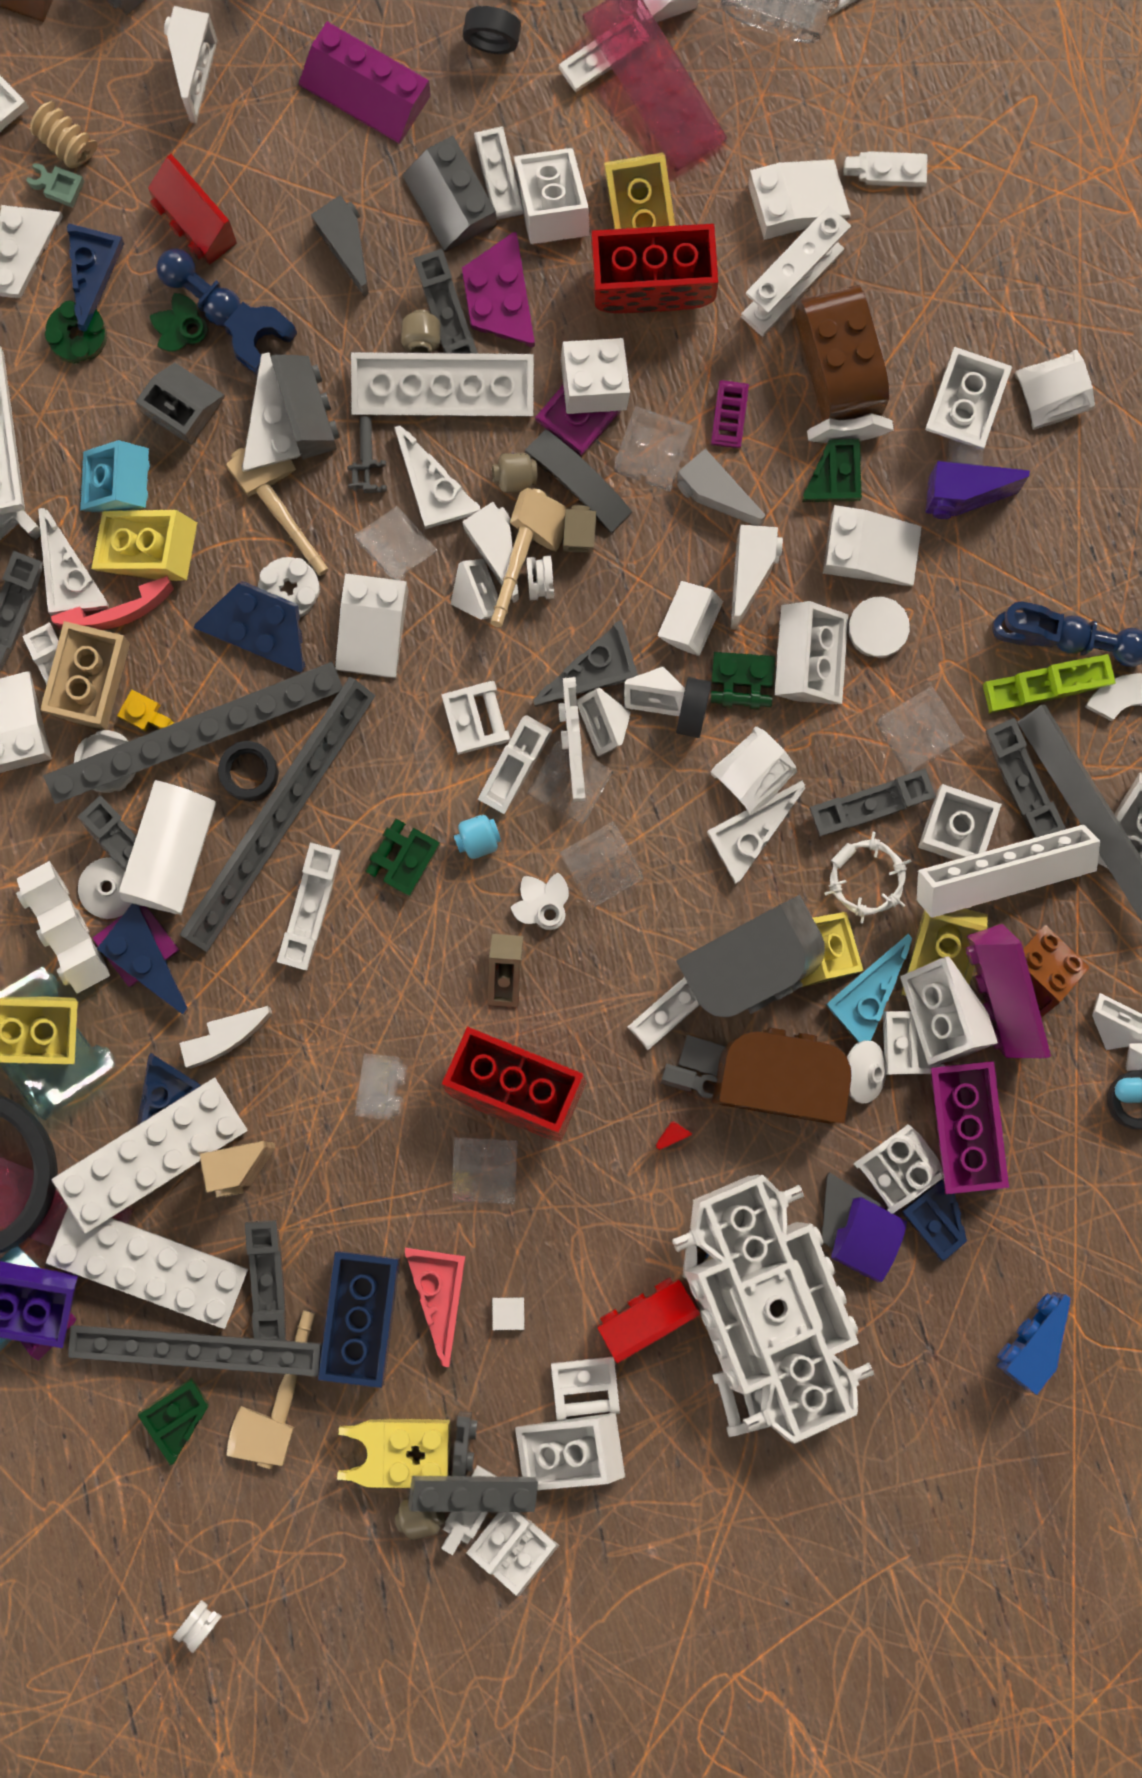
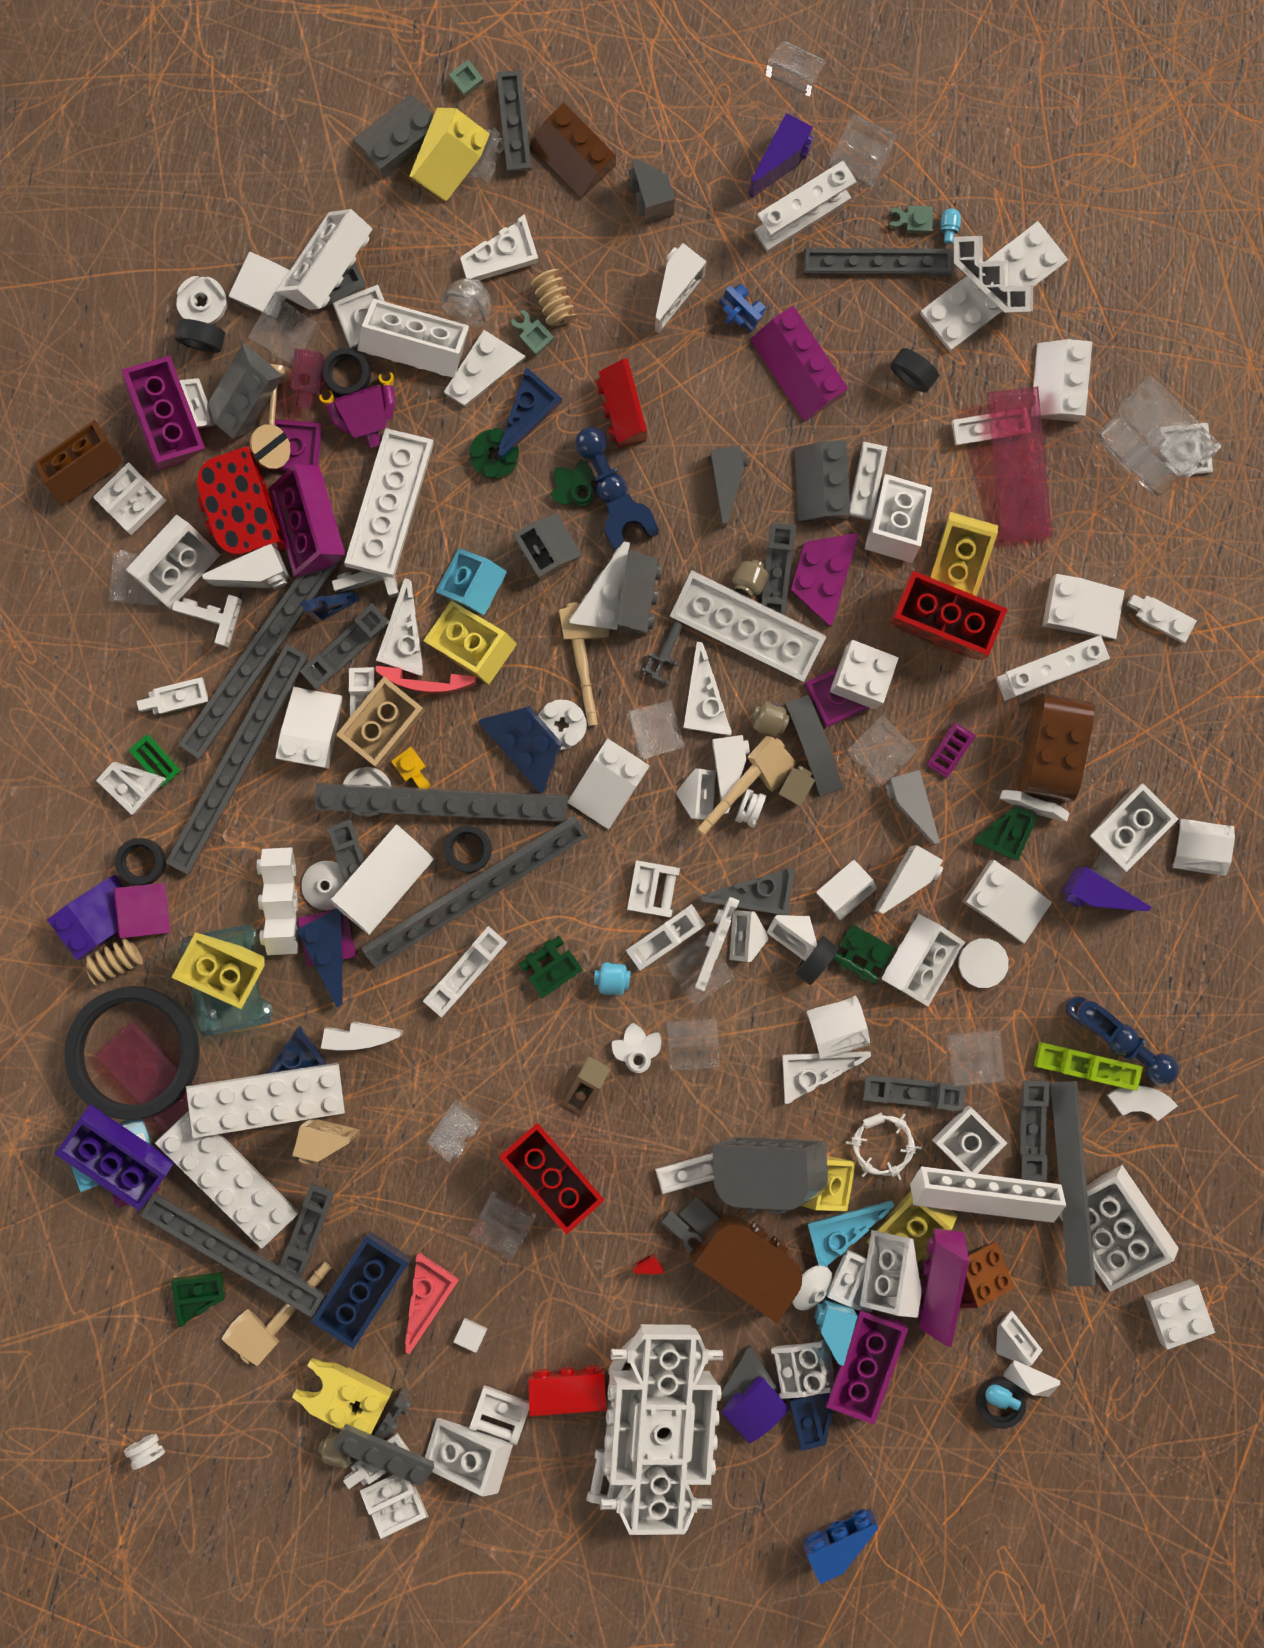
camera: 25 degrees right, 5 degrees up
(273, 55) = (739, 309): none -> blue hips
(913, 1102) = (837, 1326): none -> medium azure slope

